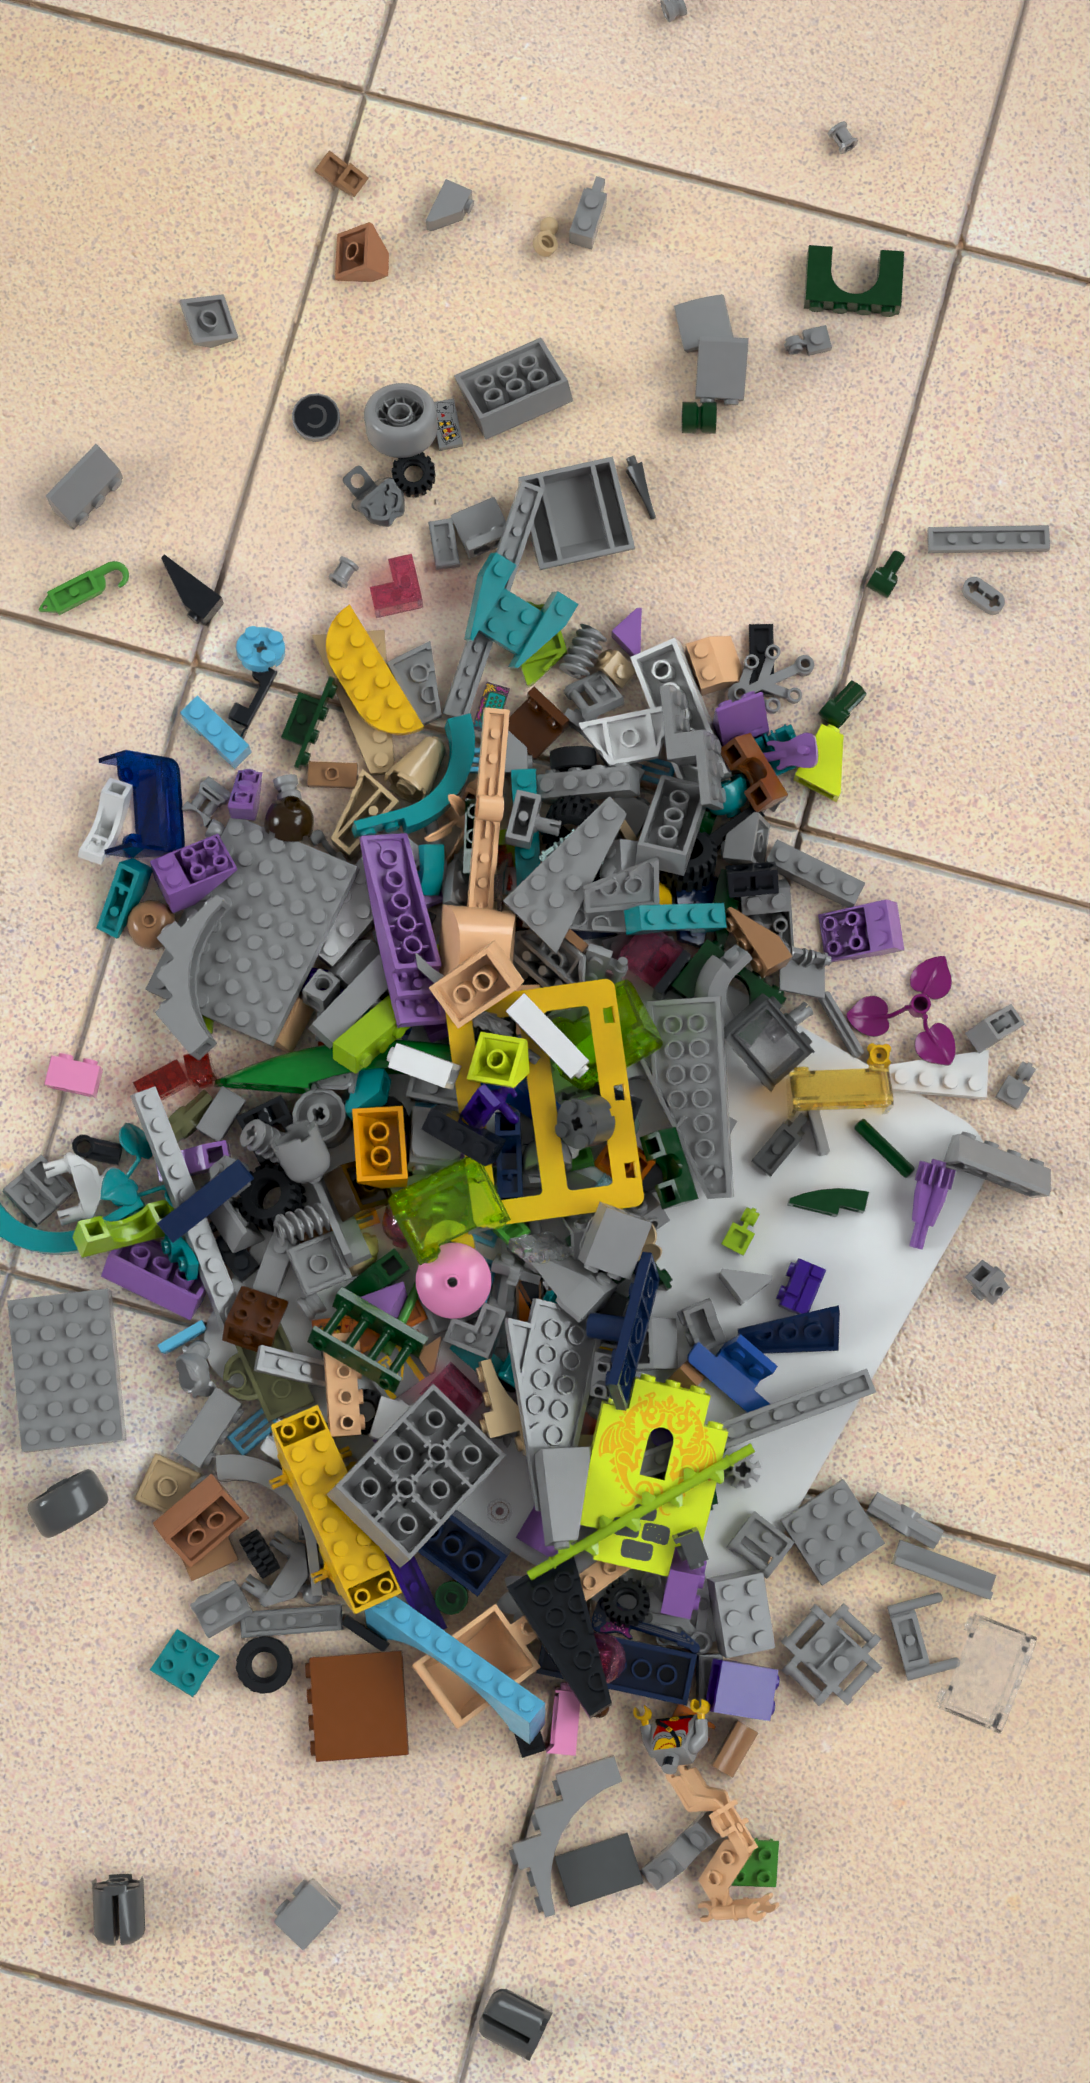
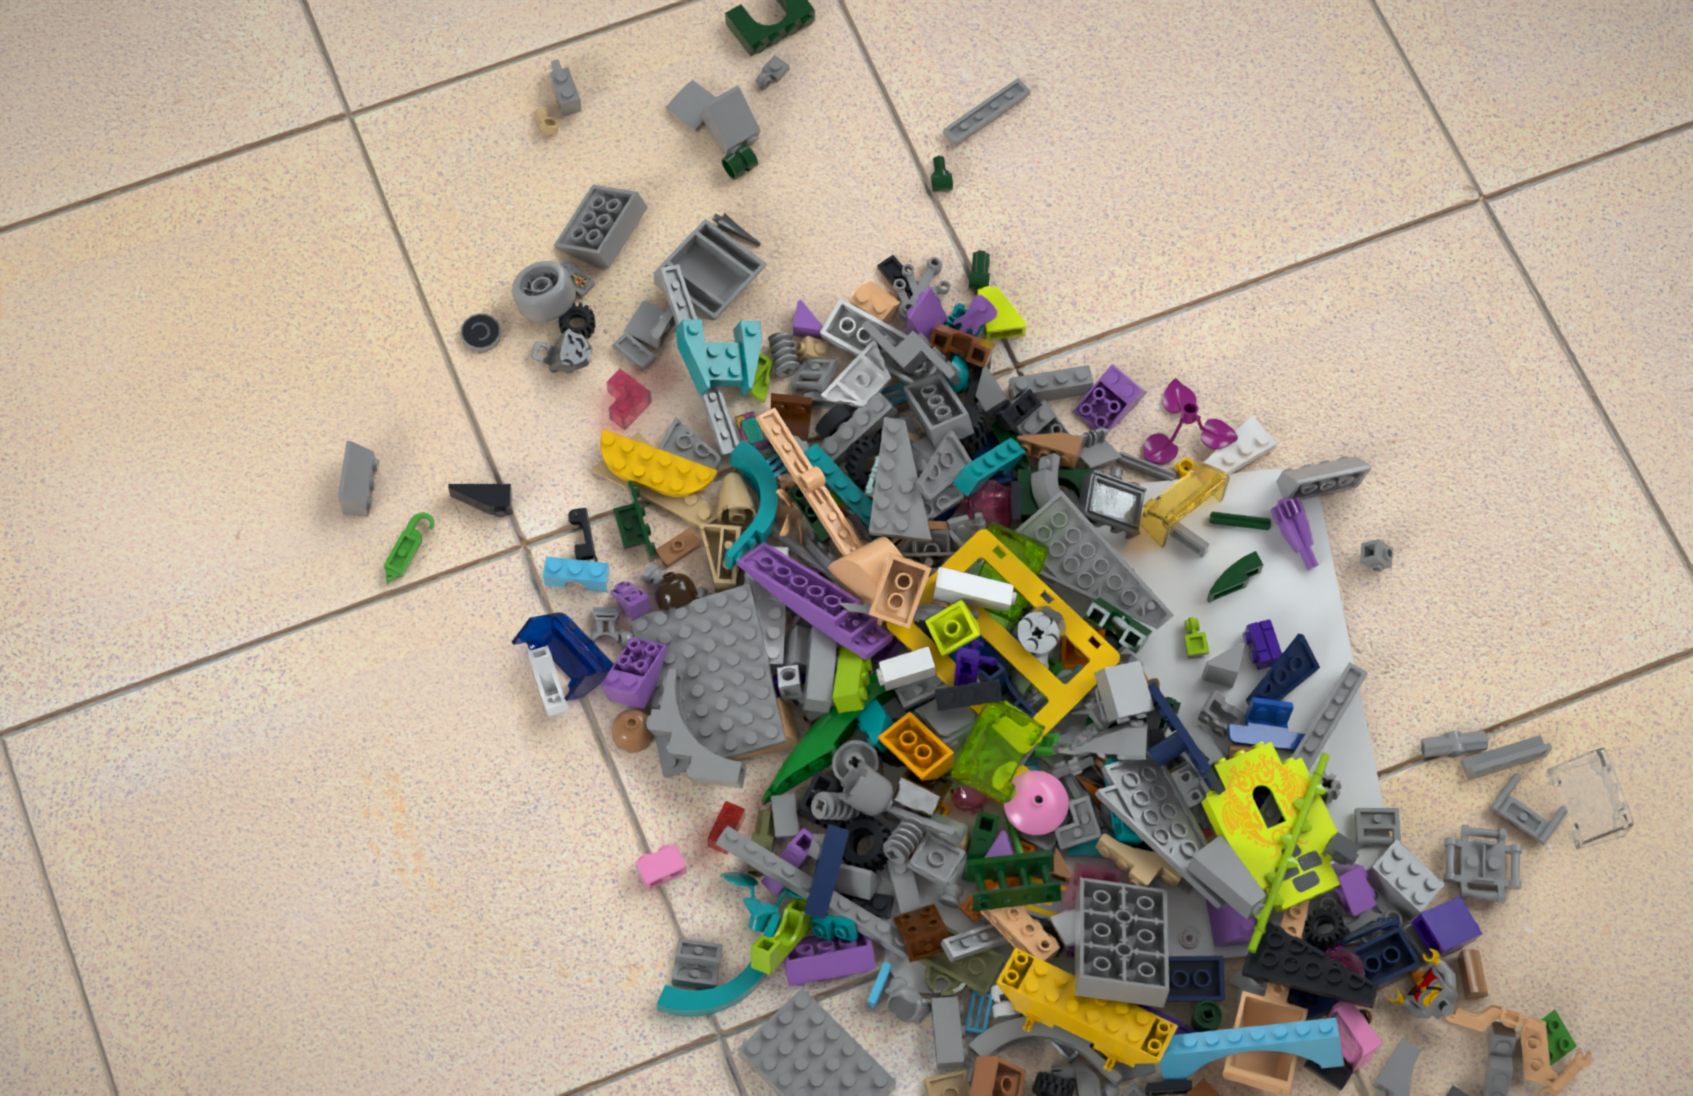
camera: 40 degrees left, 15 degrees down
(87, 1183) = (728, 932): white connector -> none
(100, 1150) = (718, 904): black piece -> none
(124, 894) = (599, 725): teal slope -> none
(201, 1071) = (747, 798): clear red slope -> none
(209, 320) = (358, 320): light grey slope -> none
(260, 637) = (553, 500): medium azure plate -> none
(338, 1082) = (852, 730): light grey piece -> none
(340, 174) = (376, 173): medium nougat slope -> none
(343, 572) = (580, 414): light grey bush -> none
(361, 255) = (429, 211): nougat slope -> none
(431, 868) = (796, 549): teal slope -> none
(449, 206) = (466, 143): light grey slope -> none
(526, 820) = (841, 474): light grey brick -> none
(780, 1145) = (1173, 566): dark grey hinge -> none
(832, 1532) = (1415, 786): light grey plate -> none
(986, 591) = (1012, 147): light grey beam -> none
(994, 1028) = (1245, 399): light grey arch -> none
(1013, 1090) = (1288, 429): light grey plate -> none

